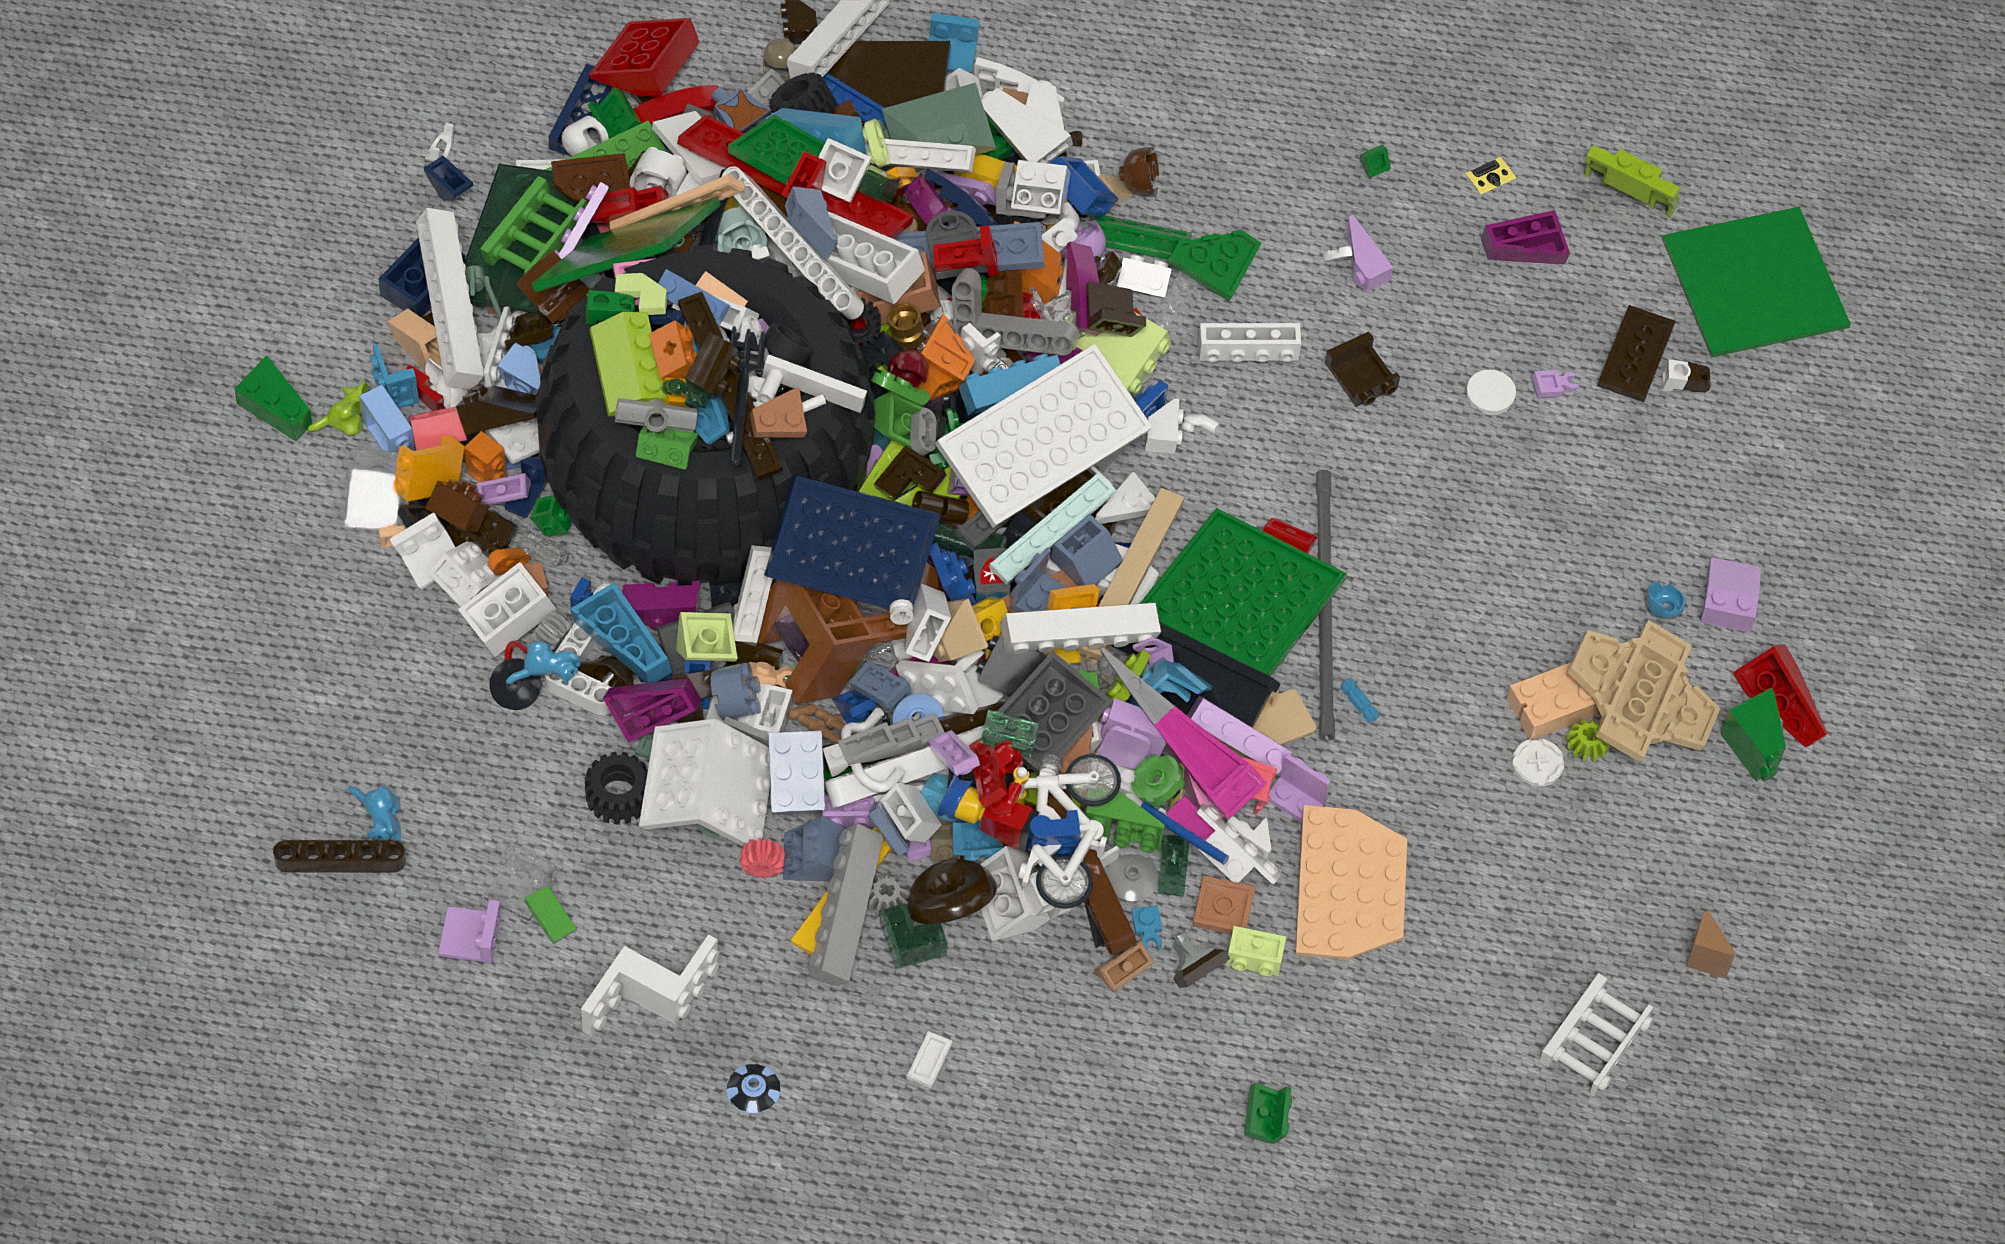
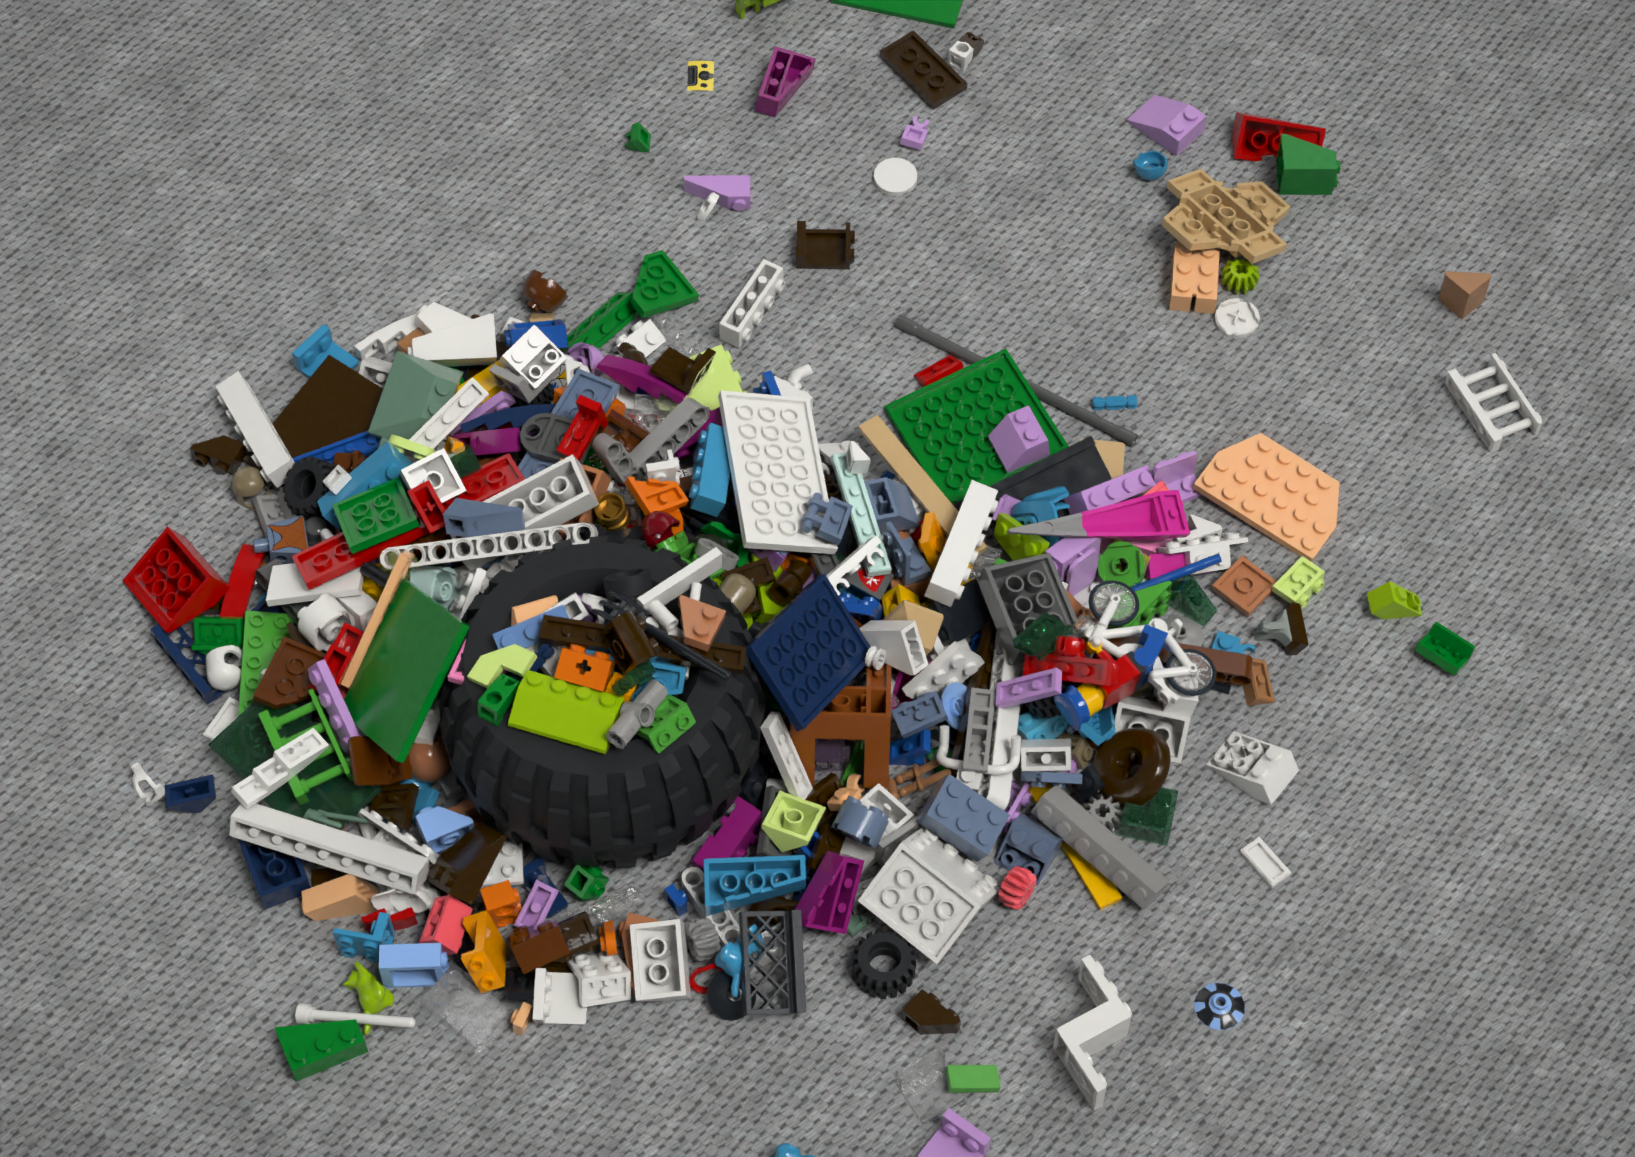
camera: 55 degrees left, 0 degrees up
(300, 377) = (306, 1013): none -> white piece
(496, 220) = (280, 768): none -> white slope
(567, 709) = (792, 962): none -> black fence
(589, 849) = (930, 1017): none -> dark brown slope
(806, 106) = (337, 479): none -> white tile
(885, 463) = (738, 590): none -> dark tan helmet
(908, 867) = (1090, 784): none -> black bracket
(982, 542) = (851, 563): none -> white plate
(1018, 505) = (834, 520): none -> sand blue plate
(1025, 1002) = (1254, 766): none -> white slope
(1103, 492) = (857, 459): none -> white slope
(1242, 630) = (1019, 440): none -> lavender slope
(1293, 1045) = (1393, 602): none -> lime slope

